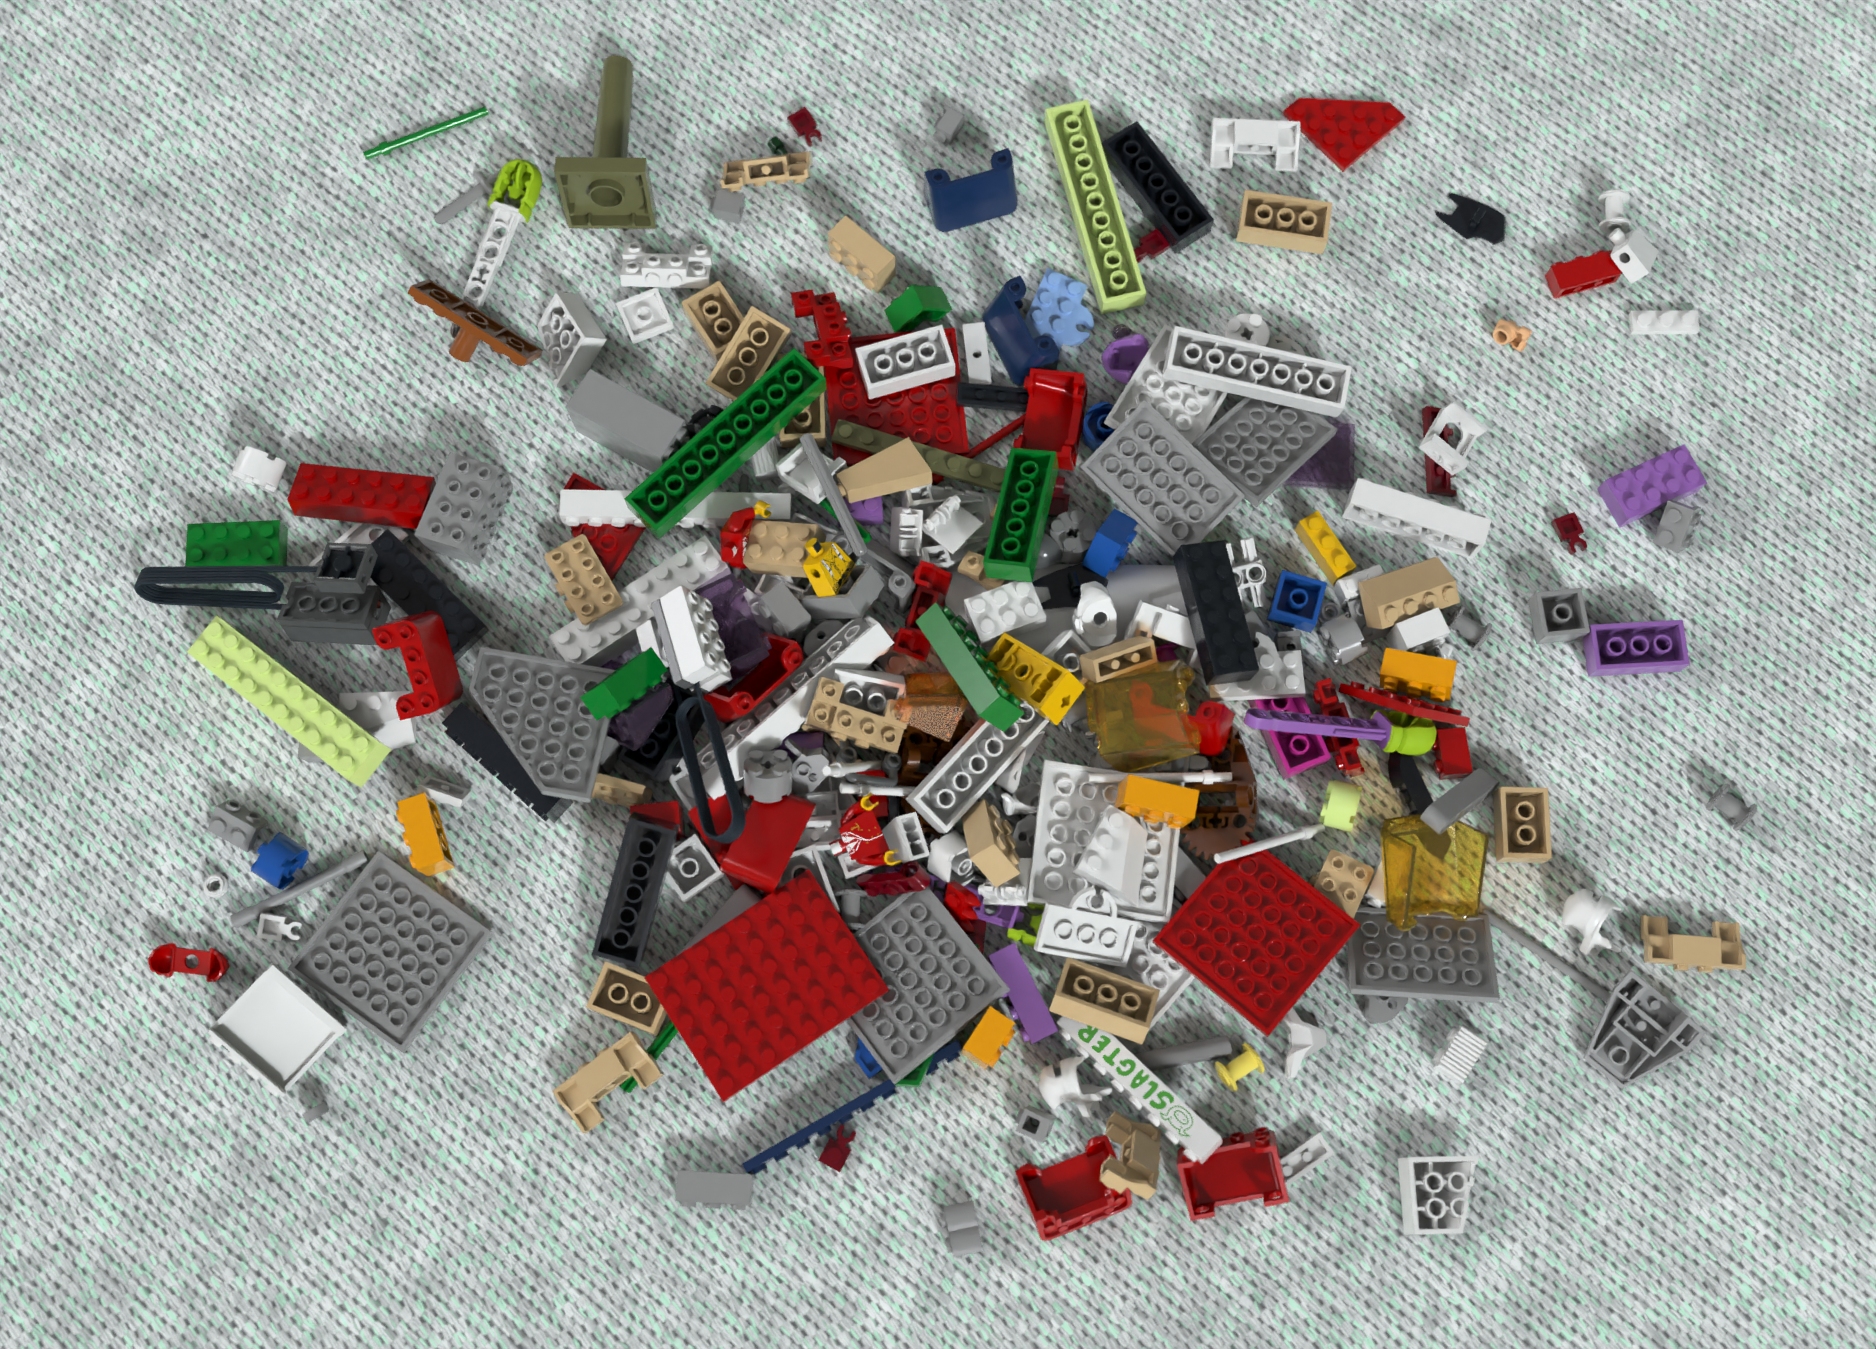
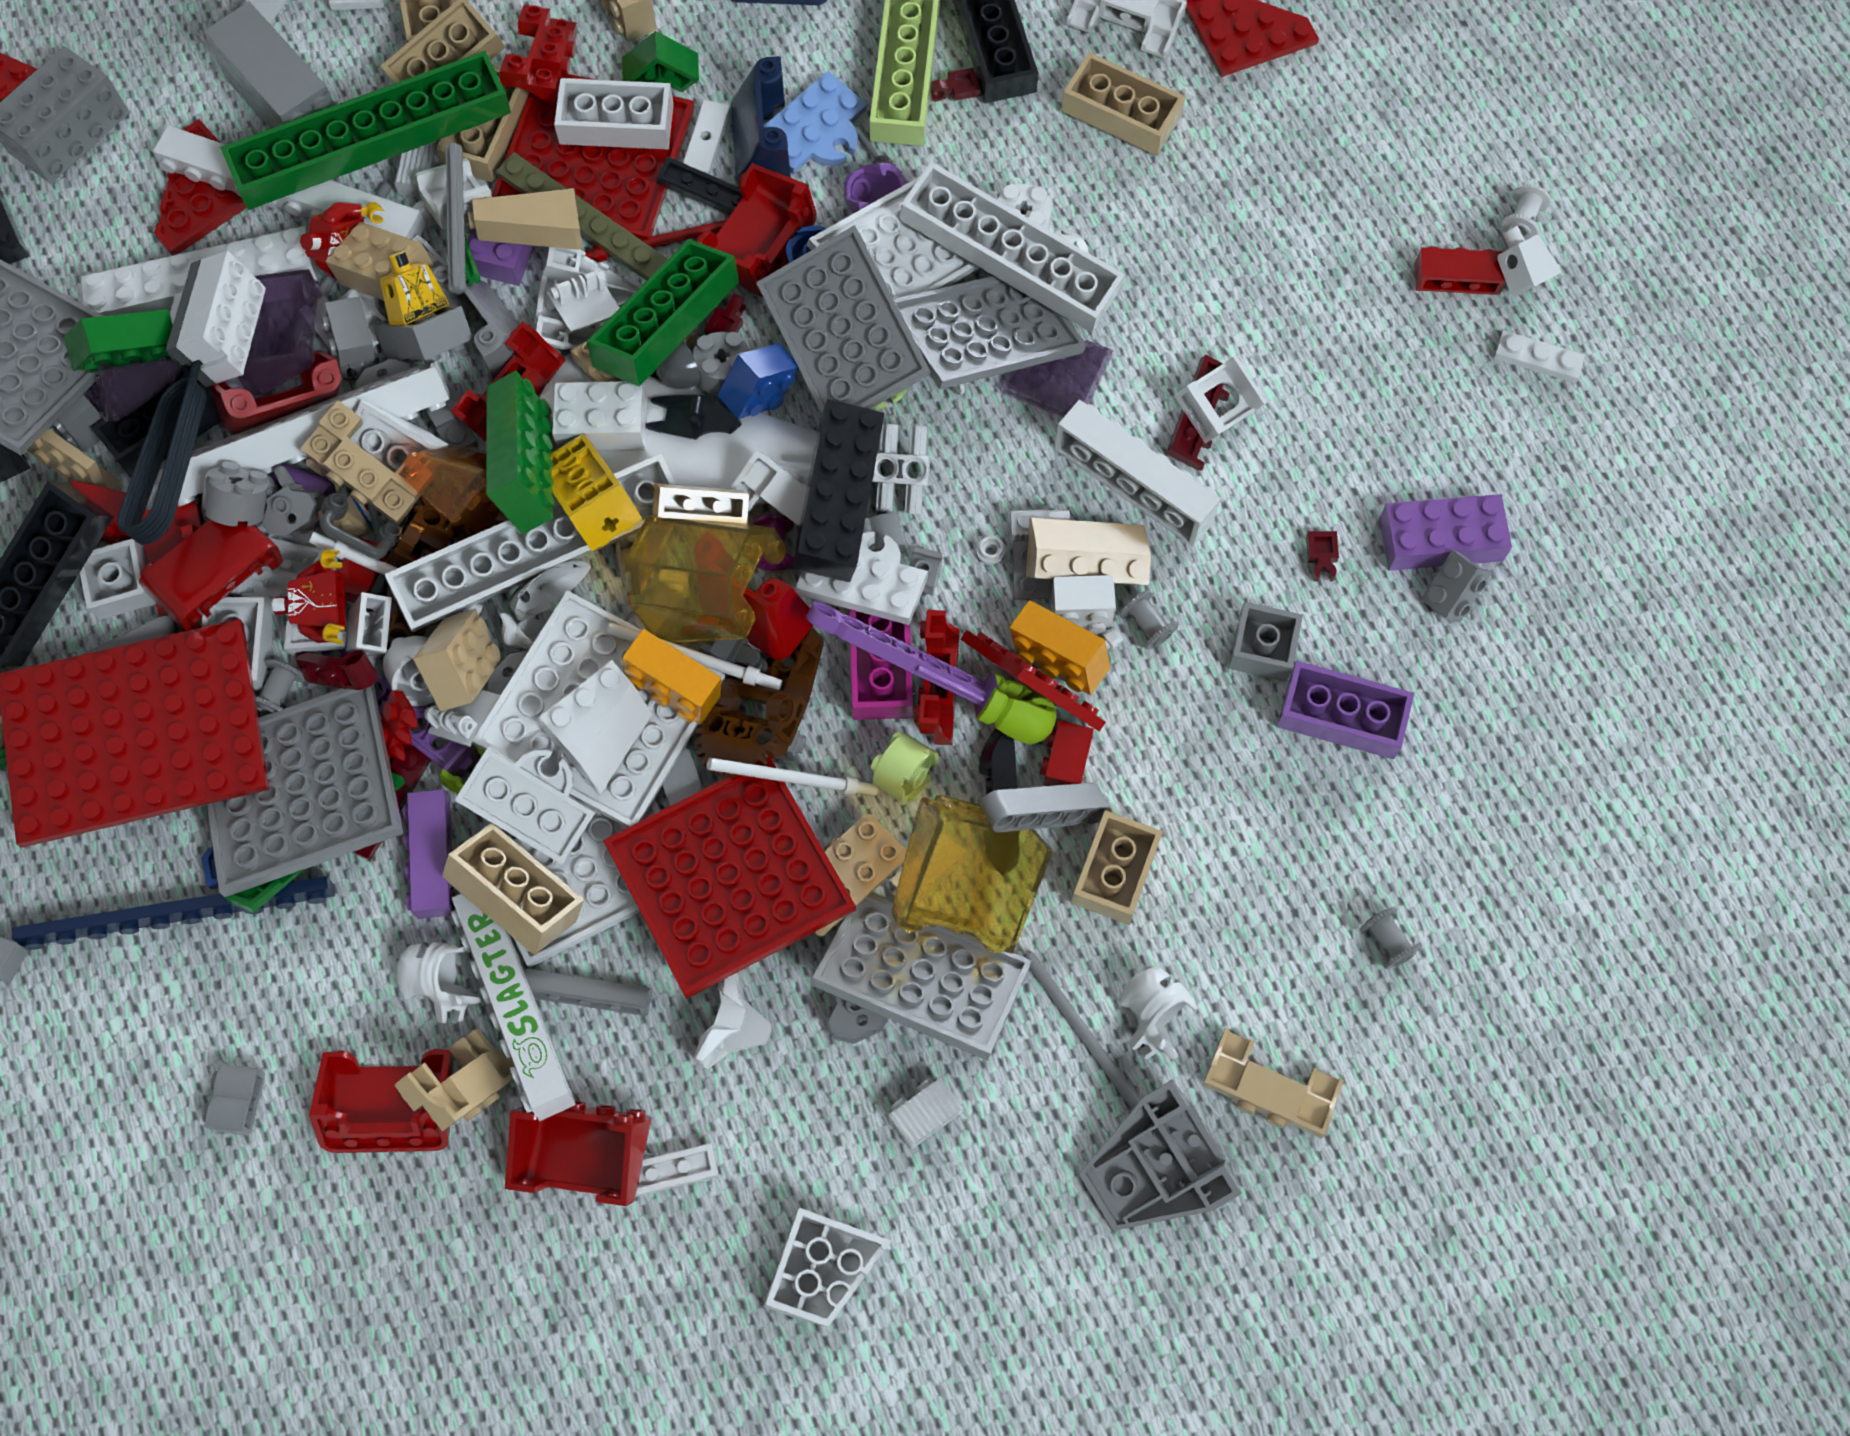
camera: 20 degrees right, 5 degrees down
(583, 580) = (147, 229): tan bracket -> none
(836, 1152) = (134, 958): dark red plate -> none
(840, 769) = (305, 504): white bar -> none
(906, 531) = (536, 285): white hinge -> none
(988, 1037) = (357, 884): light orange brick -> none
(1037, 1132) = (376, 1008): light grey brick -> none
(1095, 599) = (699, 429): white piece -> none
(1239, 1067) = (647, 1030): light yellow hose -> none
(1296, 601) = (953, 520): blue brick -> none
(1325, 547) = (1015, 469): yellow brick -> none
(1343, 639) = (989, 580): light grey brick -> none
(1475, 220) = (1356, 175): black shield -> none
(1509, 332) = (1345, 309): light nougat plate -> none

